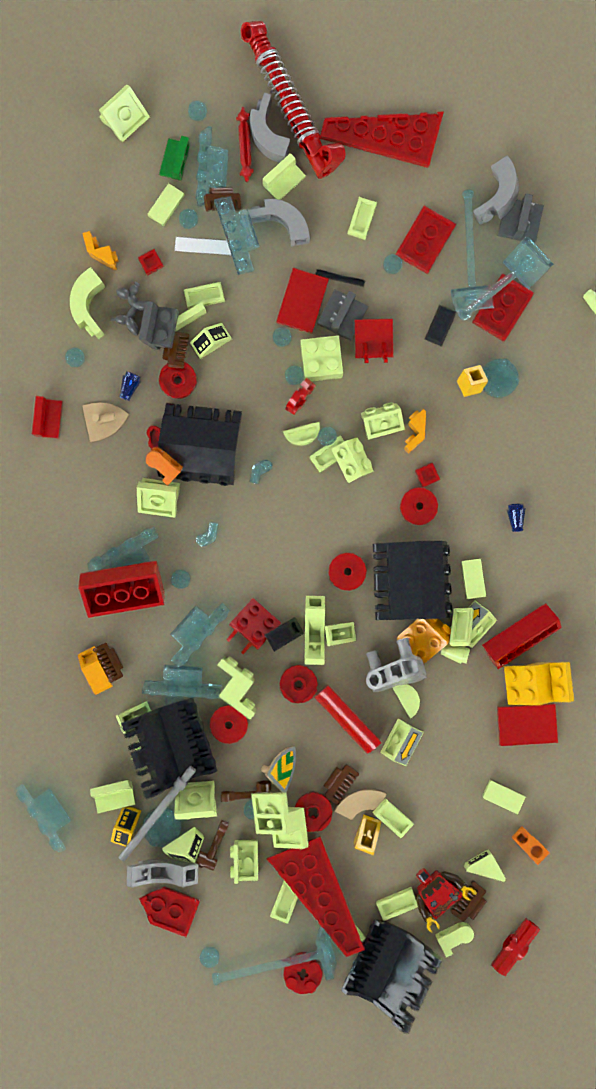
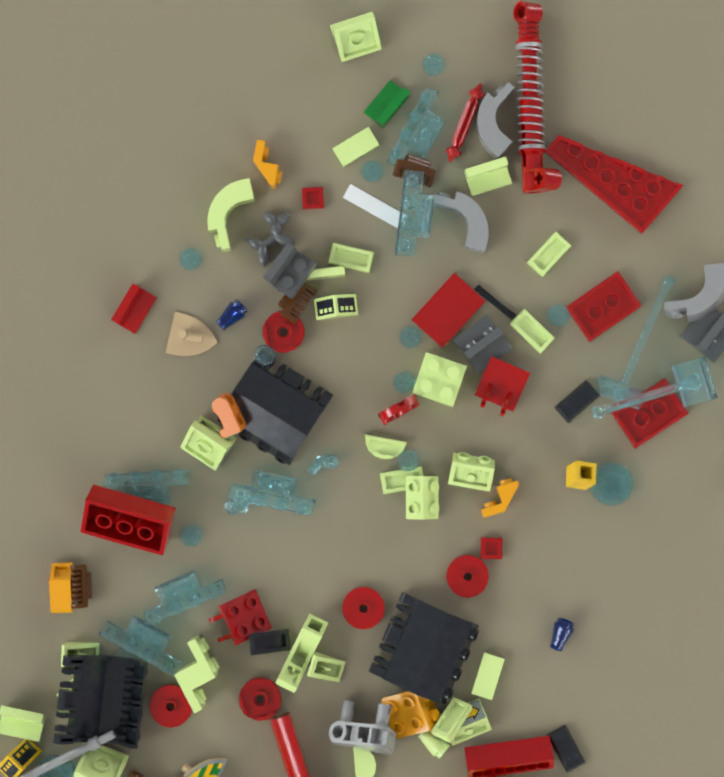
camera: 30 degrees right, 0 degrees up
(153, 434) = (233, 376): red tile -> none
(170, 404) = (264, 354): none -> clear light blue piece
(230, 512) = (272, 492): none -> clear light blue bracket
(377, 285) = (532, 331): none -> yellowish green tile
(564, 607) = (566, 748): none -> black tile

